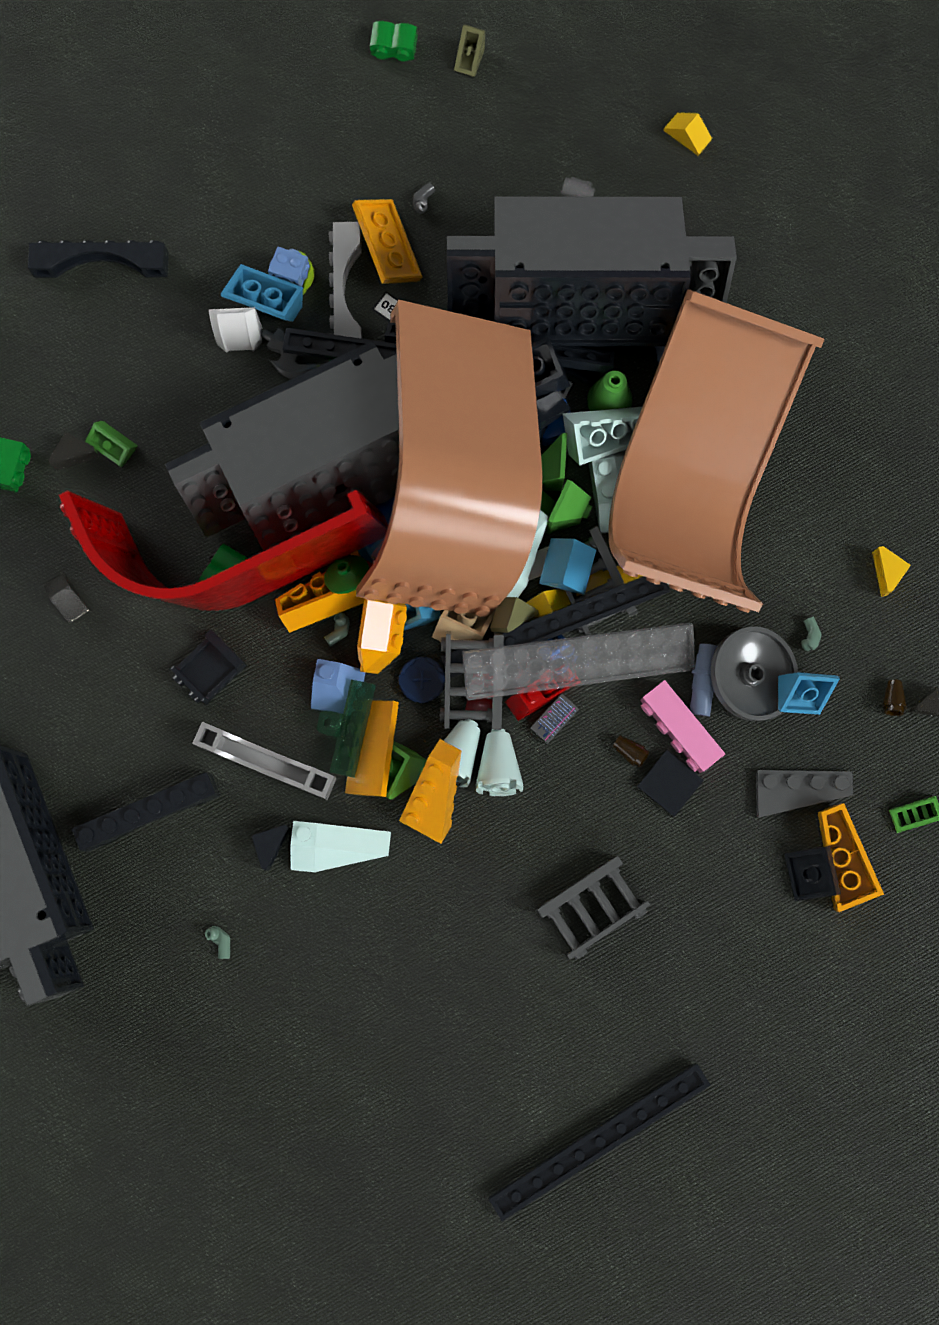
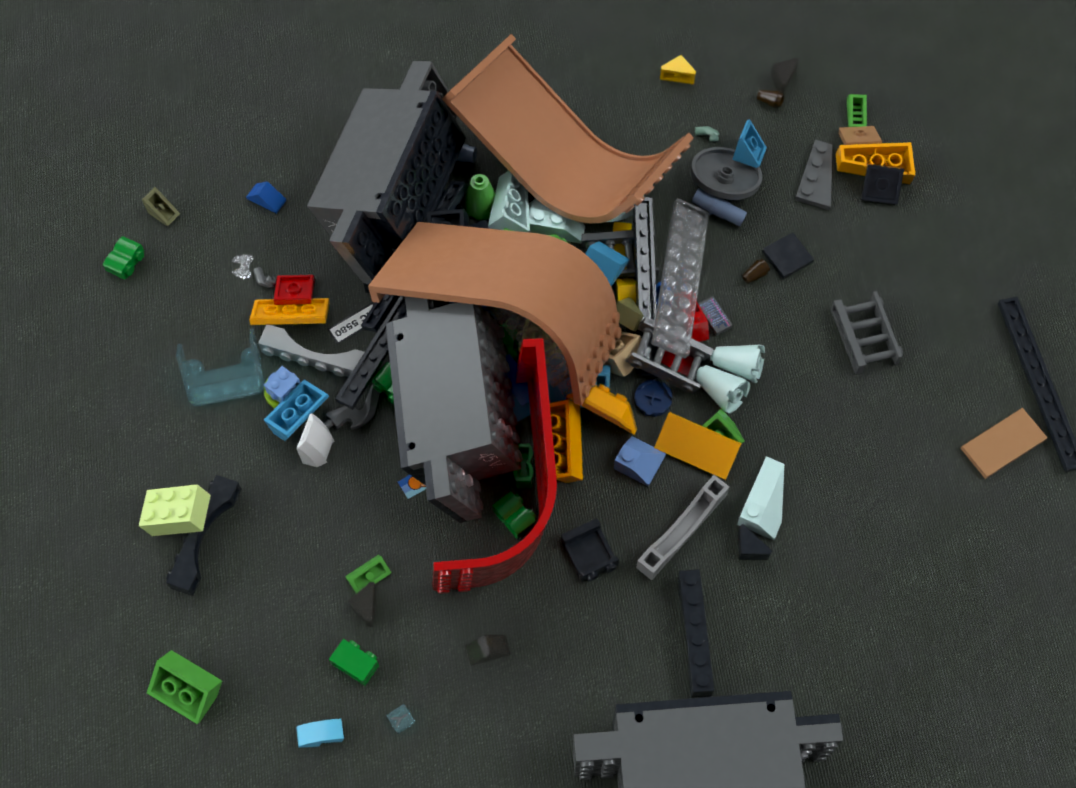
camera: 70 degrees left, 15 degrees down
(107, 217) = (174, 510): none -> yellowish green brick
(221, 939) = (817, 607): sand green arm -> none
(278, 204) = (225, 382): none -> clear light blue windscreen
(340, 630) = (593, 444): sand green arm -> none
(345, 574) = (562, 414): green dish -> none
(348, 727) = (676, 456): clear green plate -> none
(417, 235) = (294, 289): none -> red plate
(433, 796) = (750, 404): light orange wedge -> none
(438, 169) = (243, 271): none -> clear piece
(502, 1113) = (1003, 443): none -> medium nougat tile
(527, 159) = (266, 196): none -> blue slope
(577, 188) = (308, 171): clear brick -> none
(682, 727) = (749, 232): bright pink brick -> none
(689, 131) = (295, 87): yellow slope -> none
(875, 827) = (859, 135): none -> medium nougat plate

